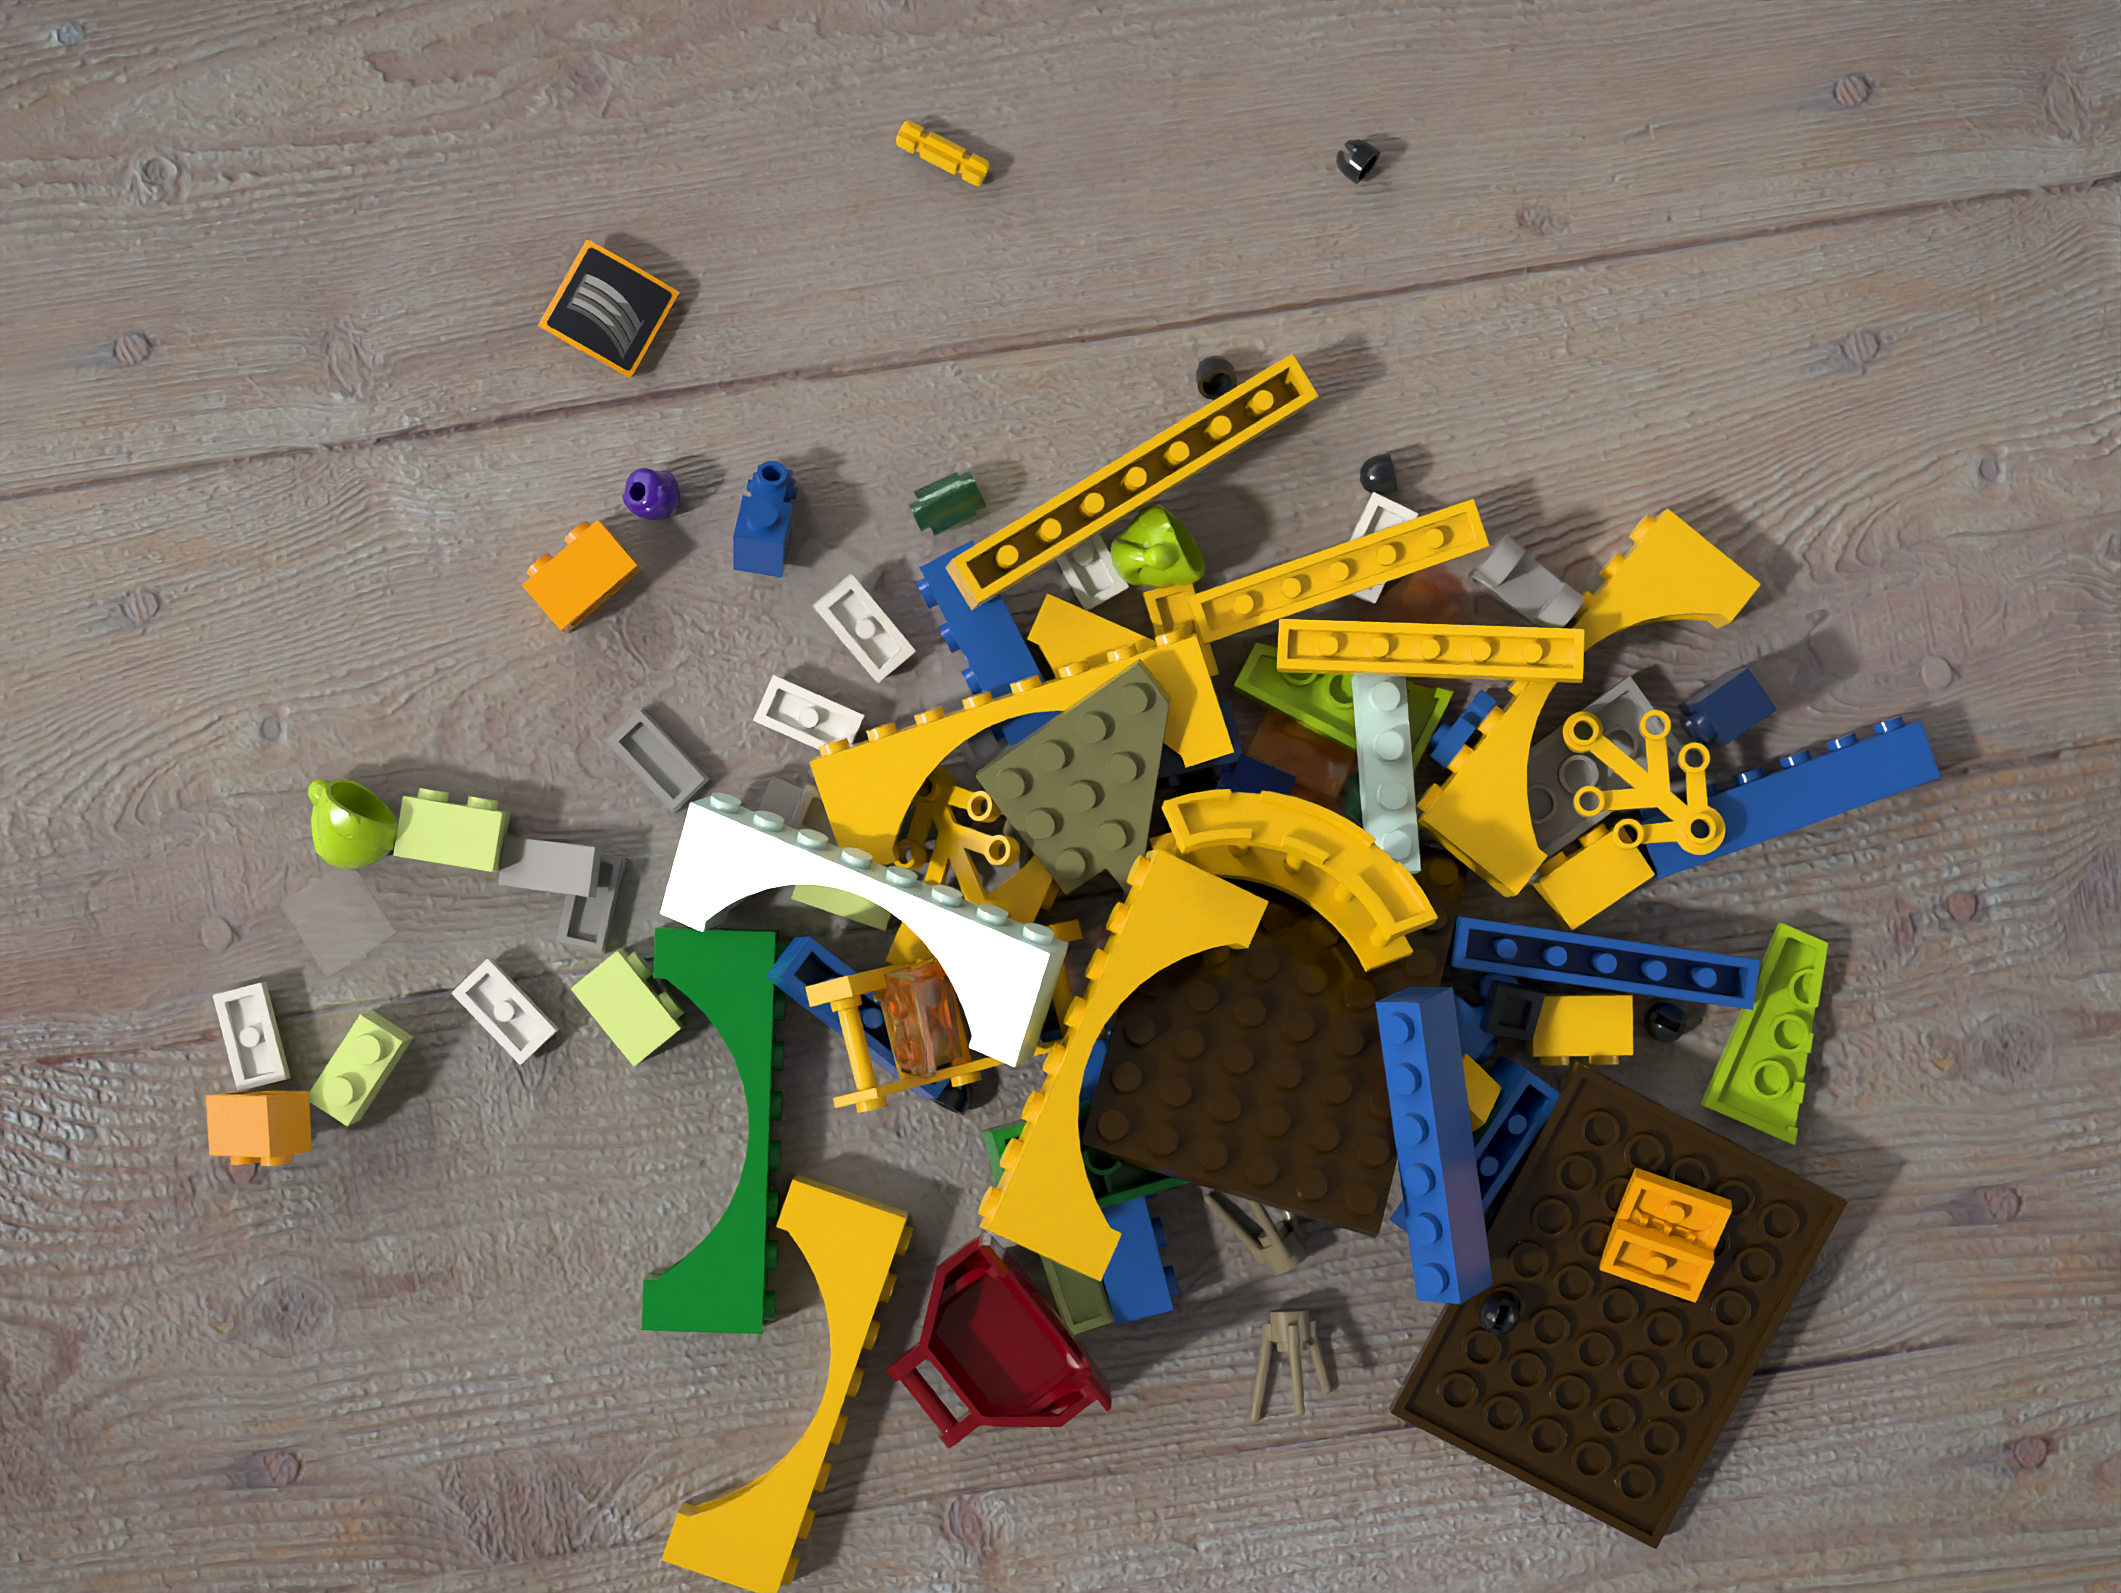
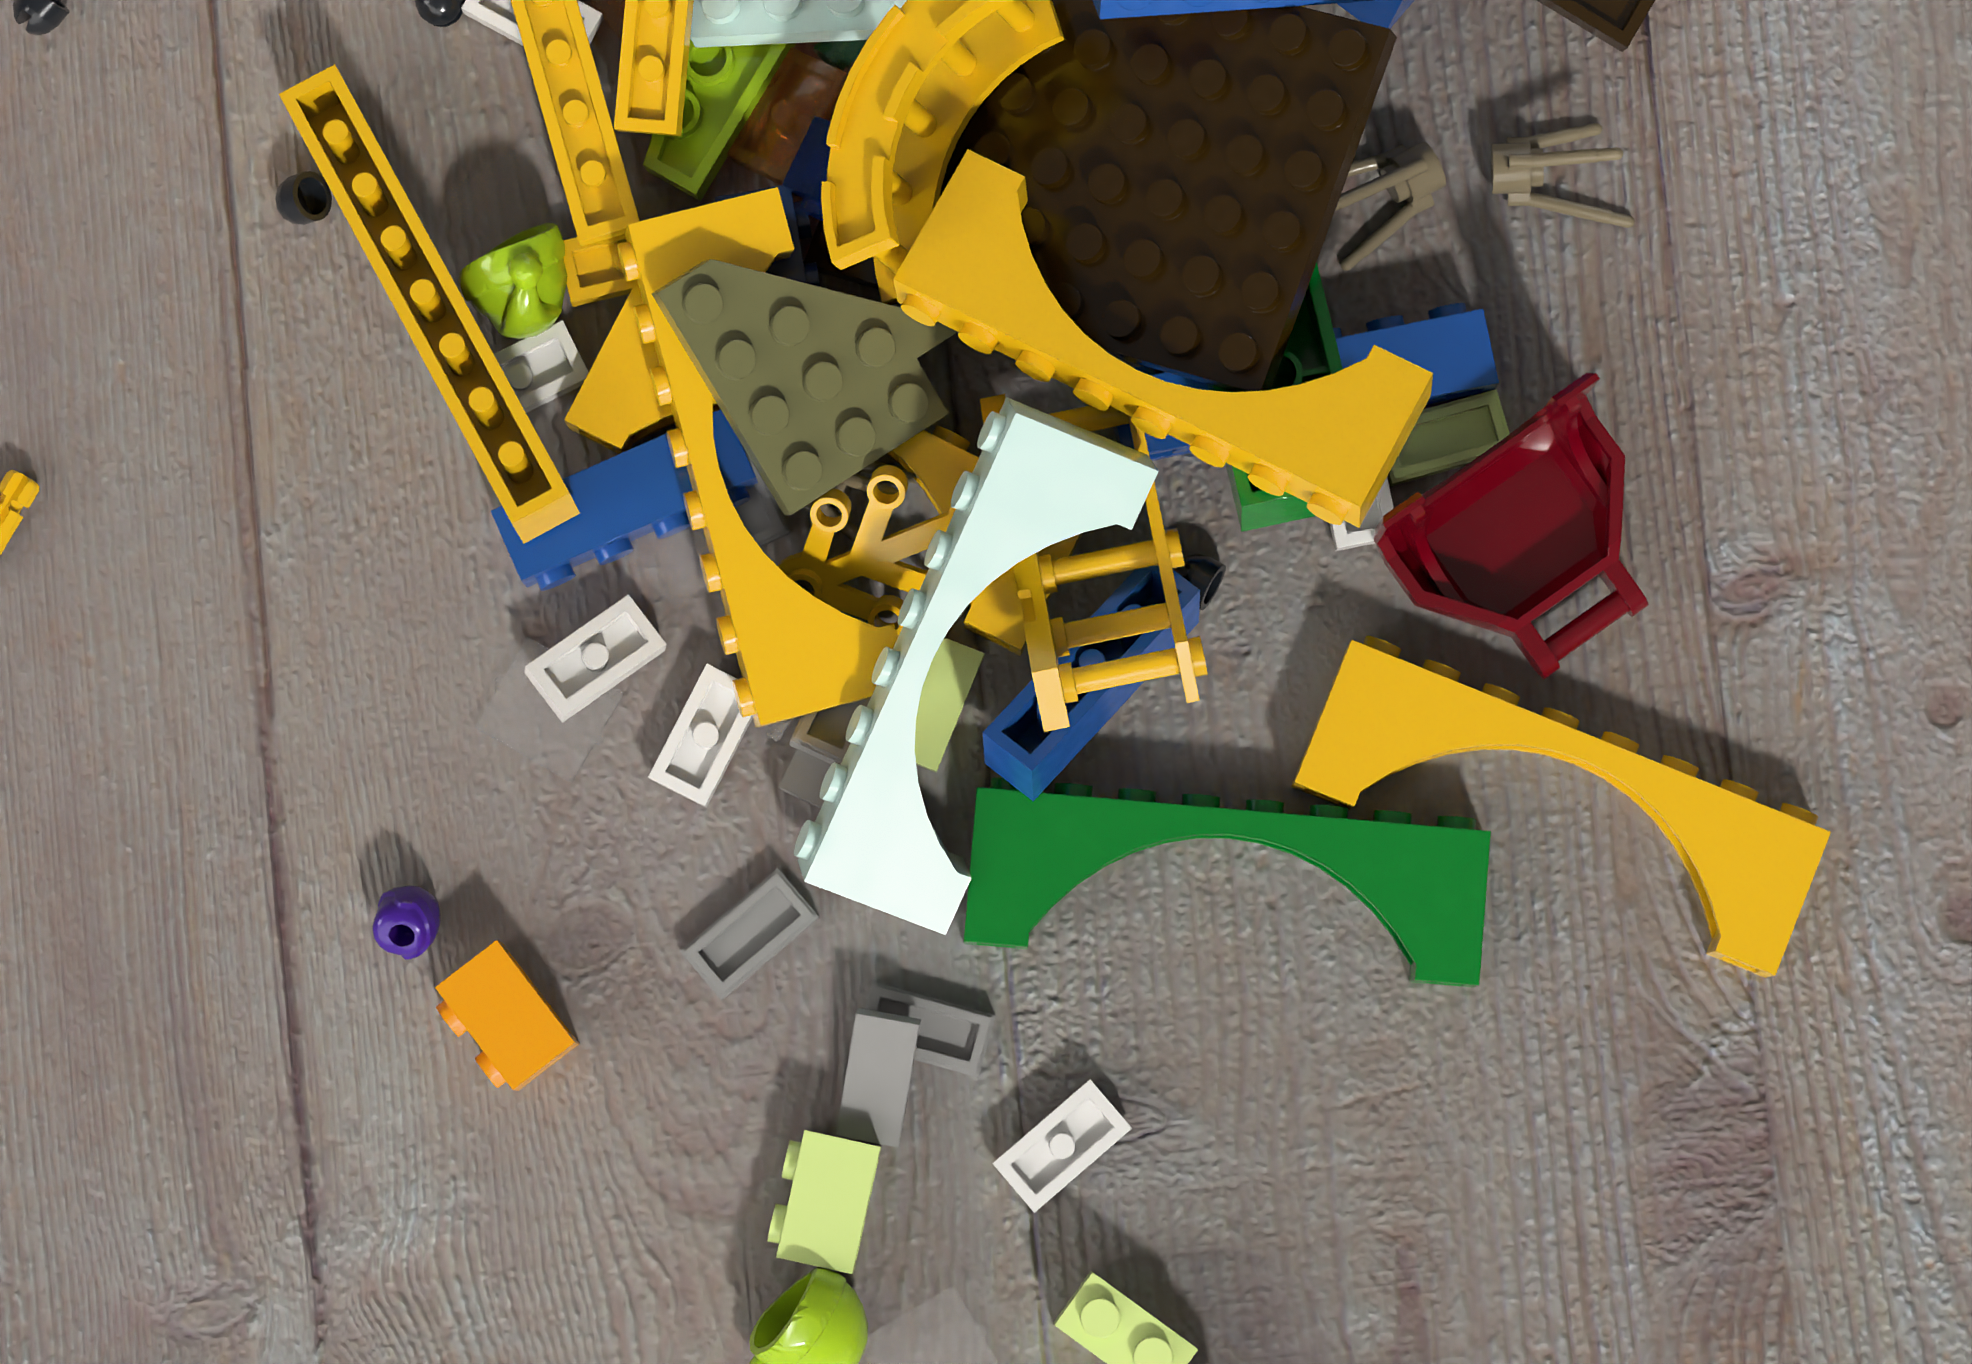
camera: 85 degrees left, 5 degrees down
(608, 309) = (164, 966): slope -> none
(630, 1005) = (1062, 983): yellowish green brick -> none
(765, 521) = (450, 775): blue brick -> none
(922, 1018) = (1092, 589): clear orange bracket -> none
(947, 503) = (441, 545): clear green brick -> none

